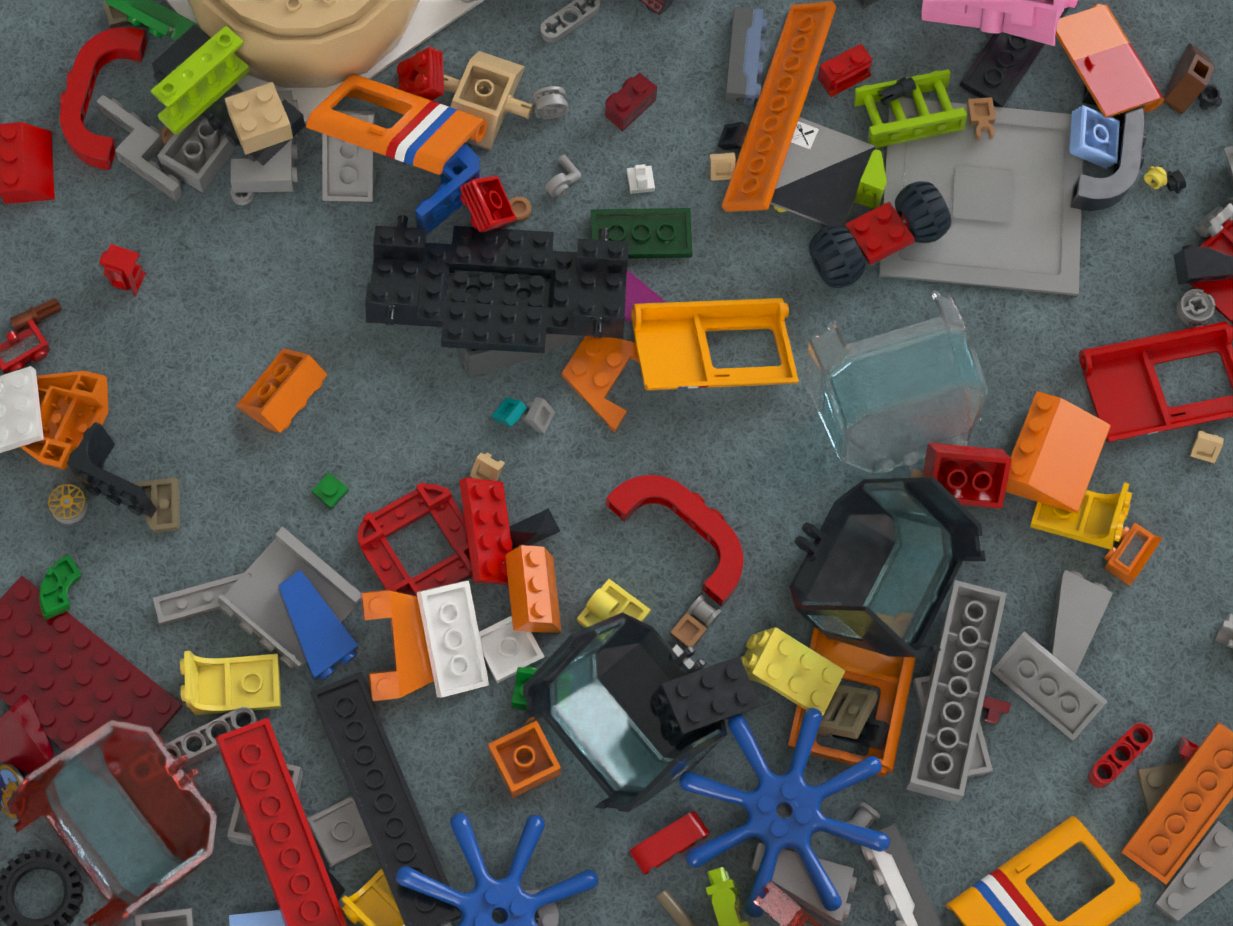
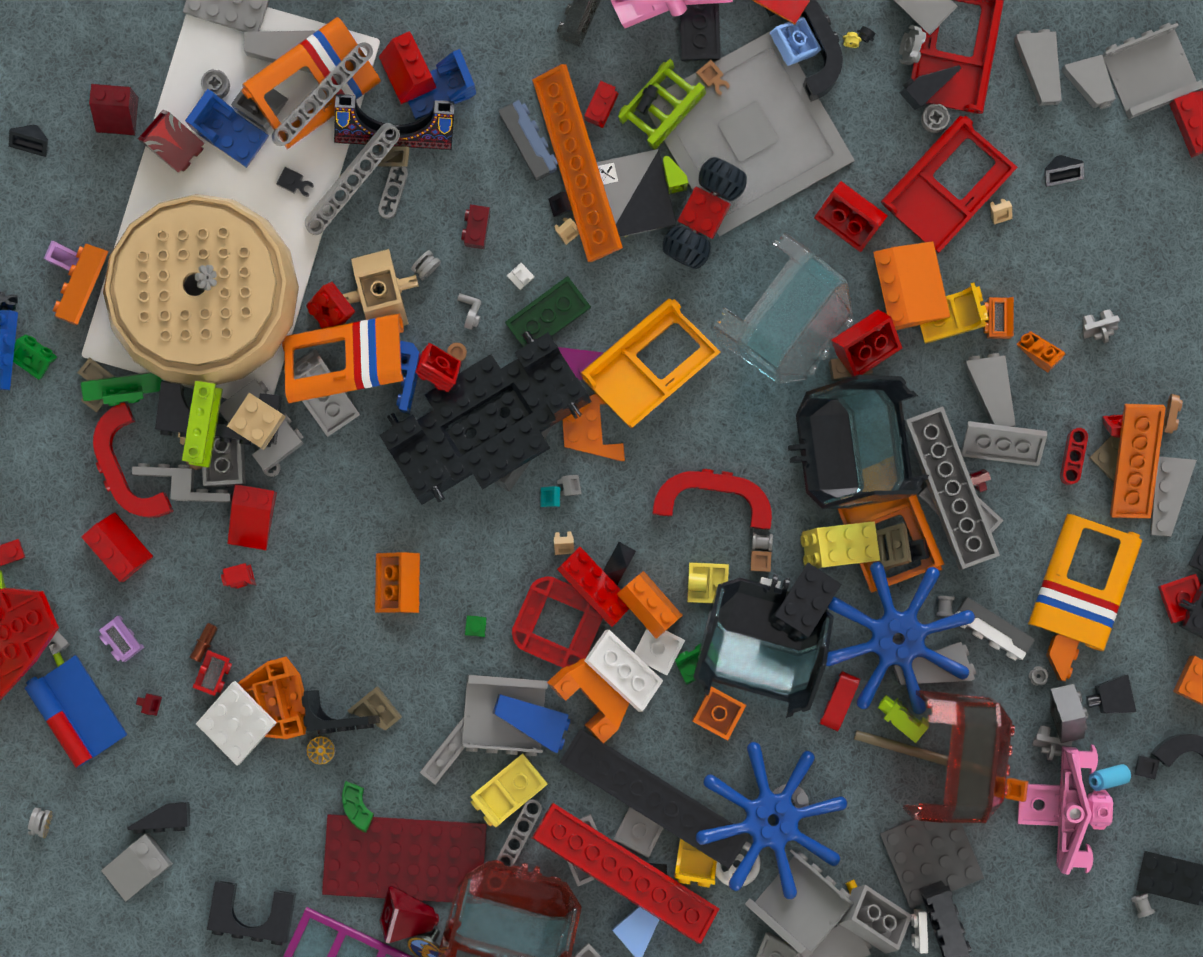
camera: 30 degrees left, 15 degrees up
(184, 224) = (251, 517): none -> red slope
(1036, 345) = (850, 216): none -> red slope
(1157, 618) = (1041, 351): none -> orange slope

